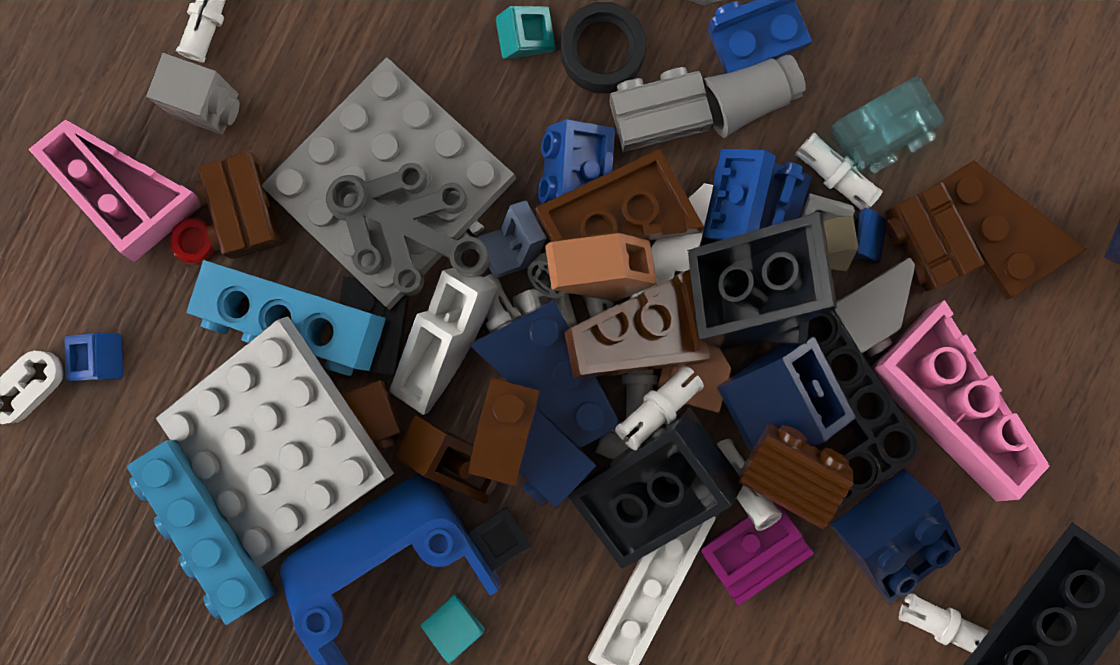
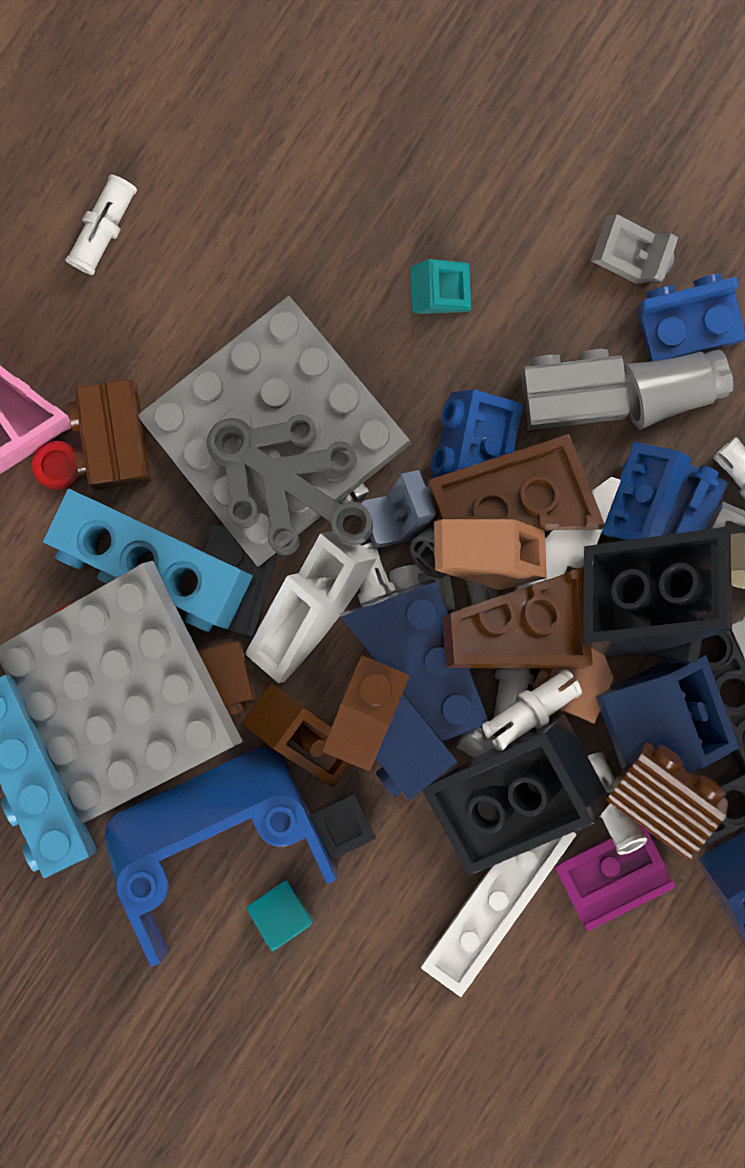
camera: 10 degrees right, 0 degrees up
(193, 94) = (81, 311): light grey brick -> none
(602, 13) = (529, 279): black tyre -> none

